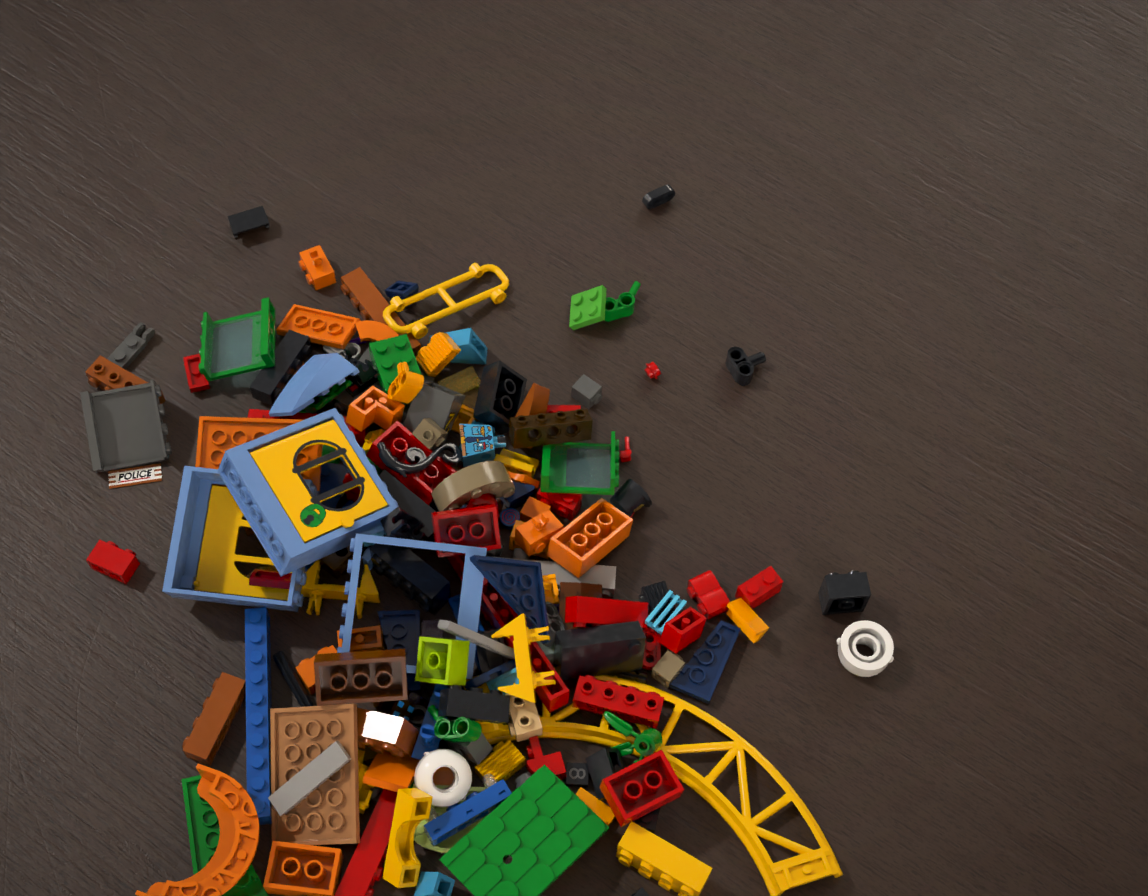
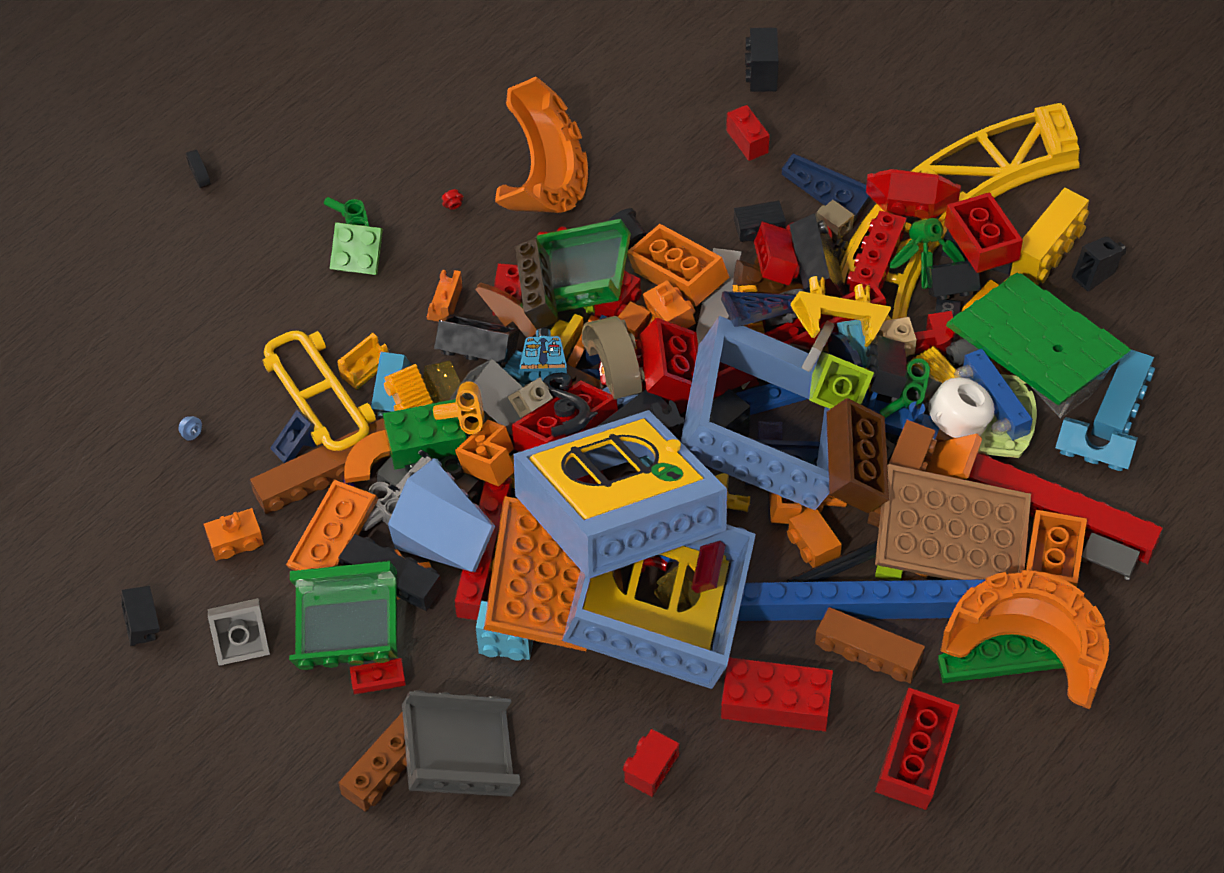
camera: 80 degrees left, 5 degrees down
(112, 758) = (917, 748): none -> red brick
(131, 346) = (319, 758): dark grey hinge -> none
(135, 476) = (523, 749): sticker -> none
(169, 648) = (776, 694): none -> red brick
(235, 281) = (238, 631): none -> light grey slope
(309, 778) = (961, 528): light grey tile -> none
(401, 861) = (1003, 429): yellow arch -> none
(411, 228) = (190, 427): none -> medium blue plate
(485, 329) = (361, 362): none -> light orange hinge
(550, 378) = (445, 296): none -> orange hinge
(586, 391) = (474, 262): dark grey brick -> none
(675, 599) = (778, 205): medium azure tile -> none
(682, 630) = (795, 195): red brick -> none
(691, 442) = (557, 161): none -> orange windscreen
(691, 730) = (912, 193): none -> red wedge
(708, 595) = (749, 177): red brick -> none
(743, 364) = (460, 116): black beam -> none
(746, 619) = (783, 147): light orange panel -> none
(871, 635) = (828, 42): white piece -> none

